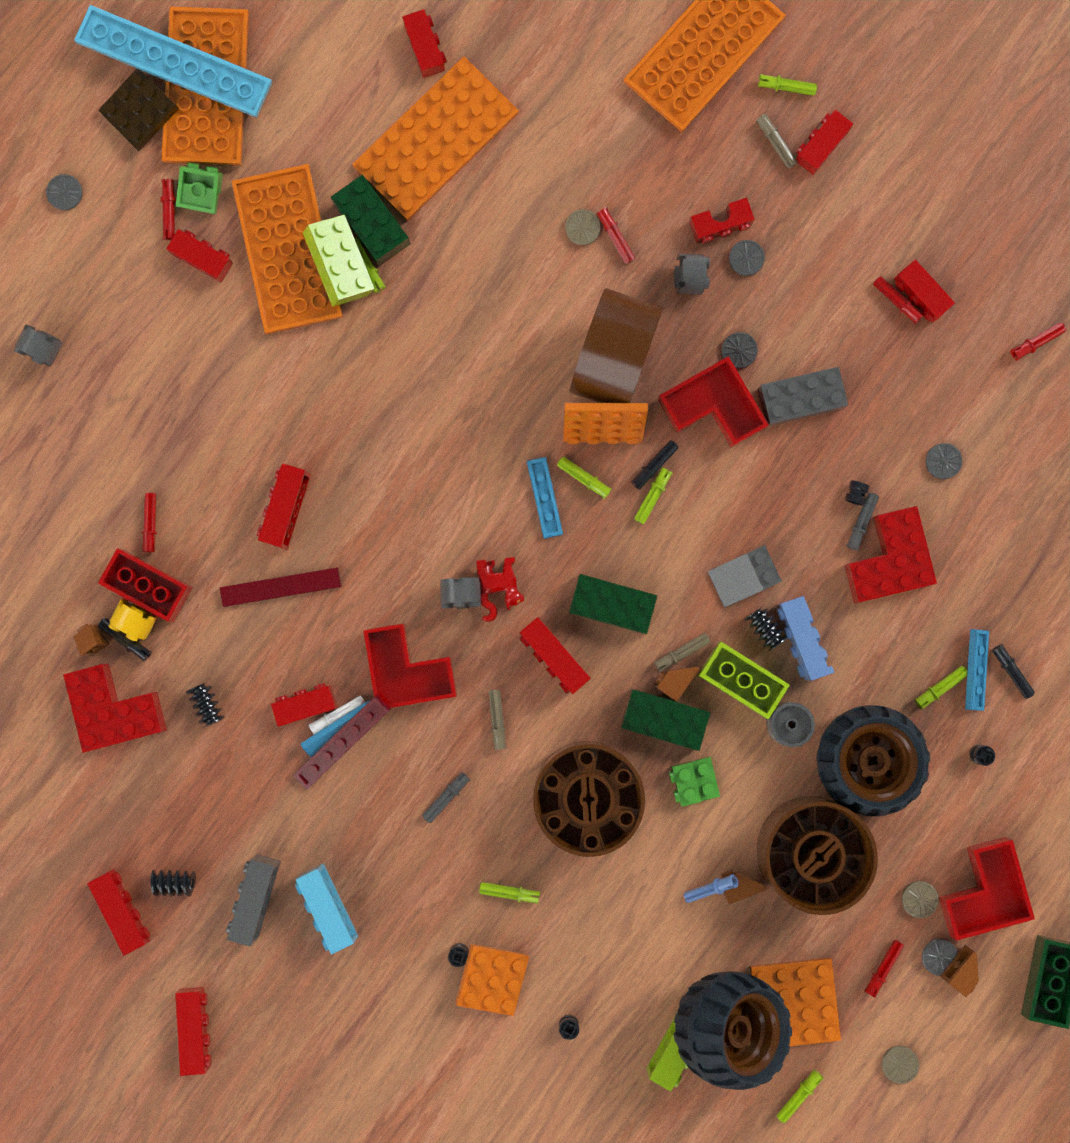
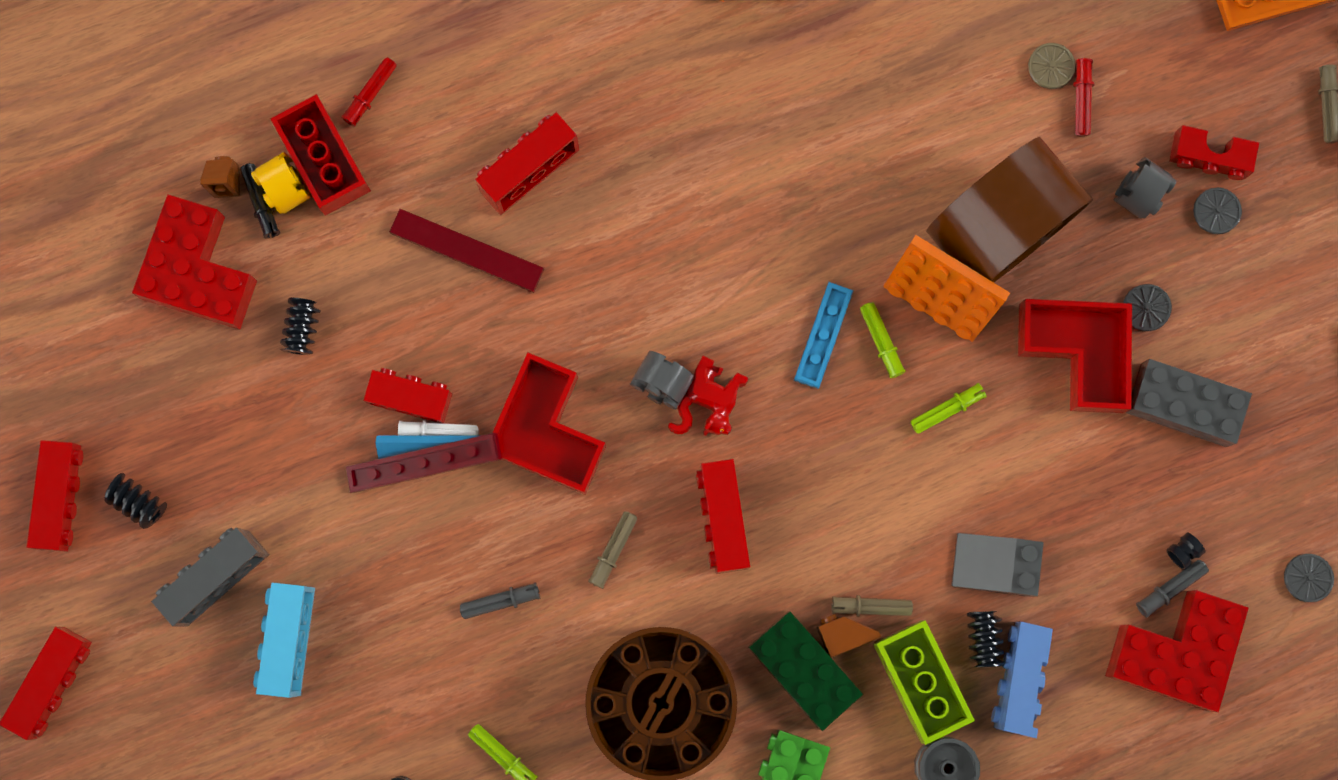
camera: 30 degrees right, 5 degrees down
(613, 604) = (826, 501): dark green brick -> none
(654, 465) = (971, 375): black axle -> none

